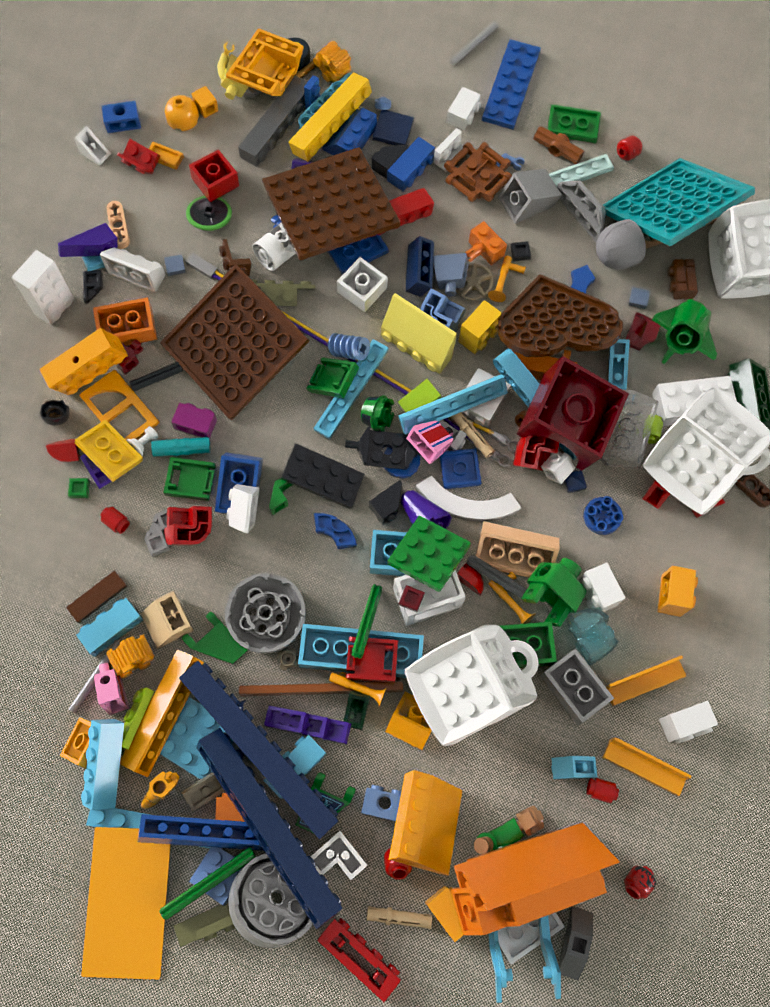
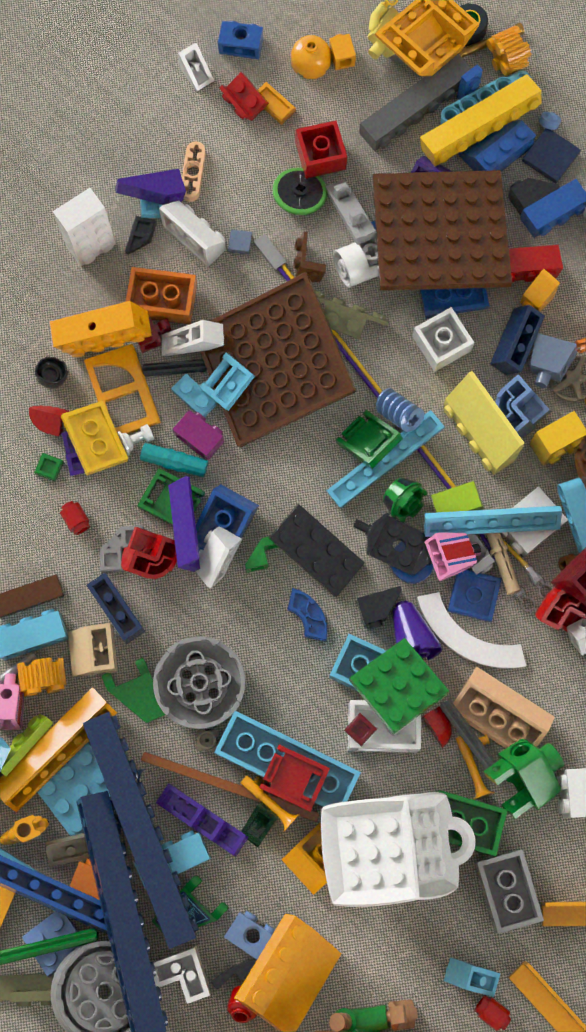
camera: 25 degrees right, 5 degrees up
(164, 345) = (193, 338): none -> white slope
(174, 579) = (115, 608): none -> dark blue brick
(179, 392) = (194, 396): none -> medium azure plate
(207, 372) = (232, 384): none -> medium azure plate
(208, 491) = (184, 524): none -> dark purple panel
(255, 213) = (351, 212): none -> light grey hinge
(367, 621) = (304, 734): green axle -> none
(386, 835) = (241, 970): none -> black slope
(424, 223) = (540, 291): none -> light orange slope
(592, 634) = (549, 840): clear light blue brick -> none

